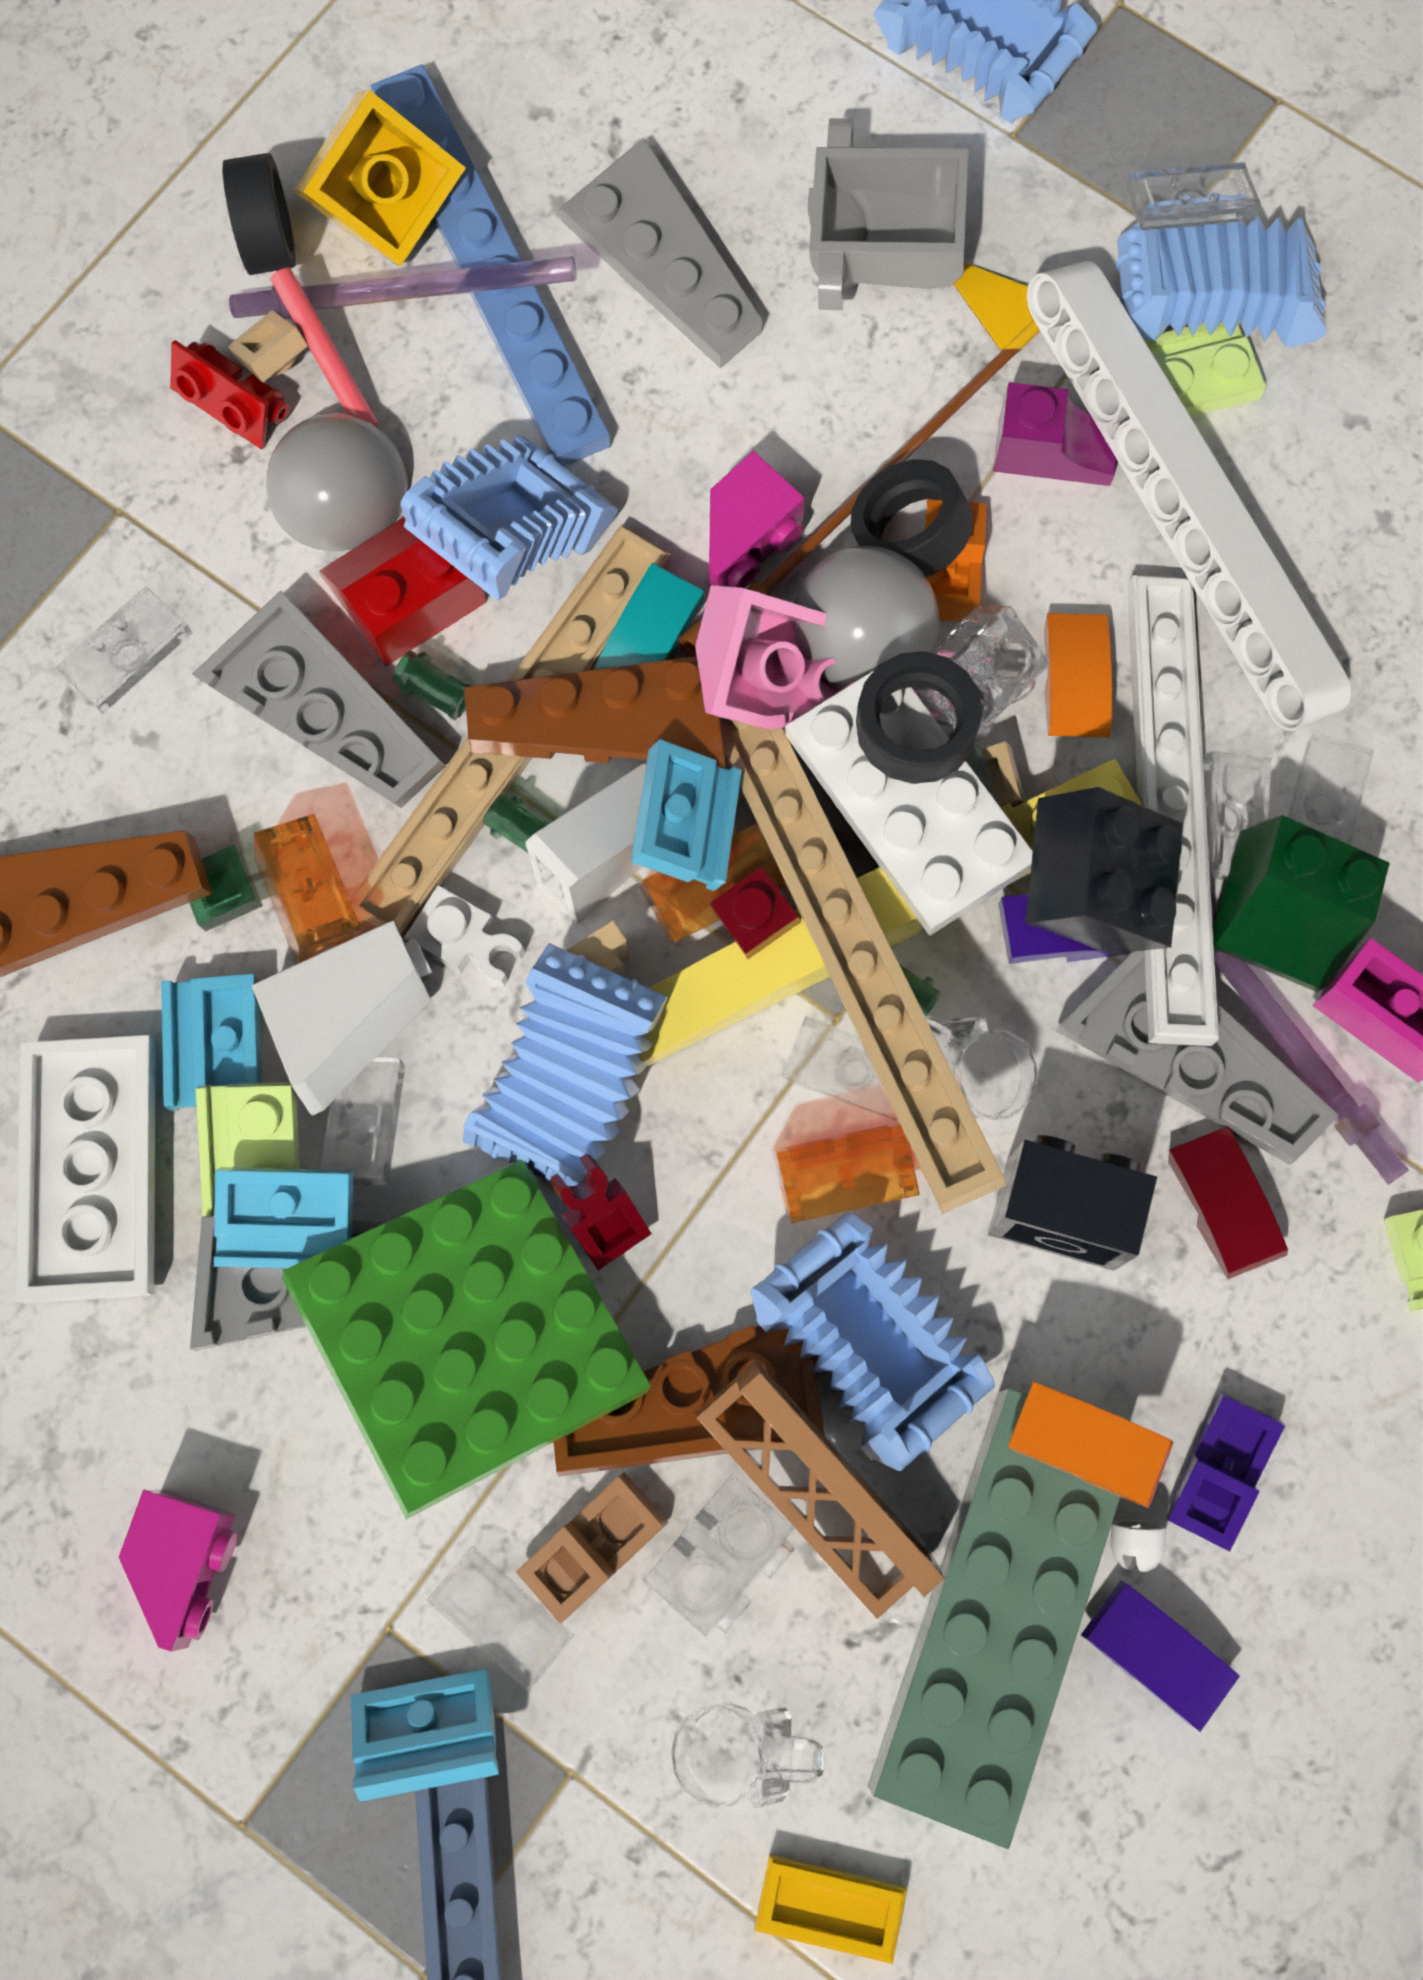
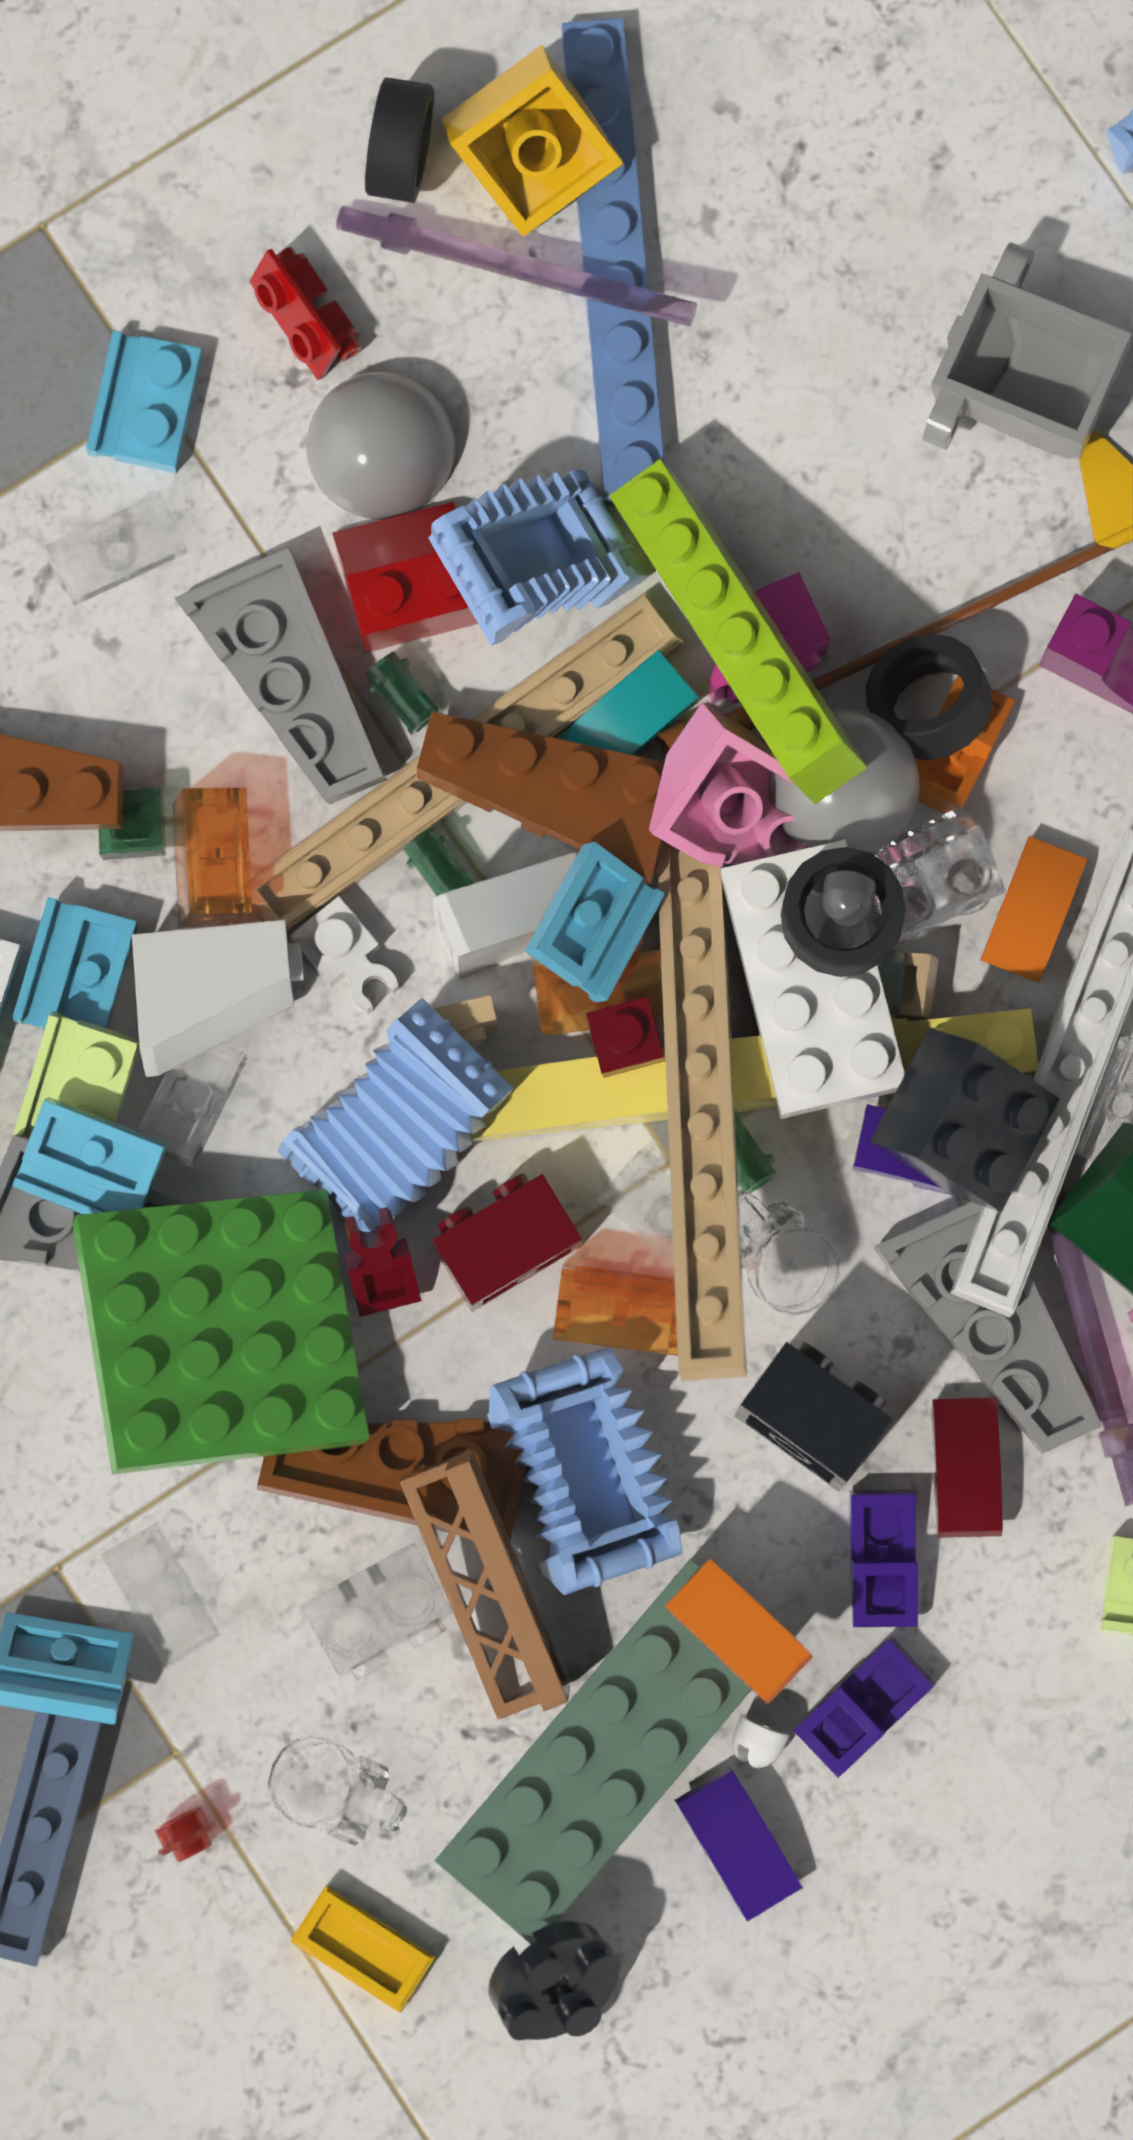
camera: 15 degrees right, 5 degrees up
(108, 517) = (144, 401): none -> medium azure plate
(268, 346) = (360, 279): tan plate -> none
(321, 345) = (414, 301): coral bar -> none
(592, 1547) = (265, 1563): medium nougat slope -> none
(609, 1858) = (185, 1834): none -> clear red plate
(658, 246) = (792, 304): light grey wing -> none
(710, 1146) = (505, 1240): none -> dark red brick
(725, 511) = (738, 632): none -> lime brick
(921, 694) = (848, 897): none -> dark grey hinge
(1041, 1876) = (533, 1997): none -> black plate
(1183, 1319) = (883, 1558): none -> dark purple slope

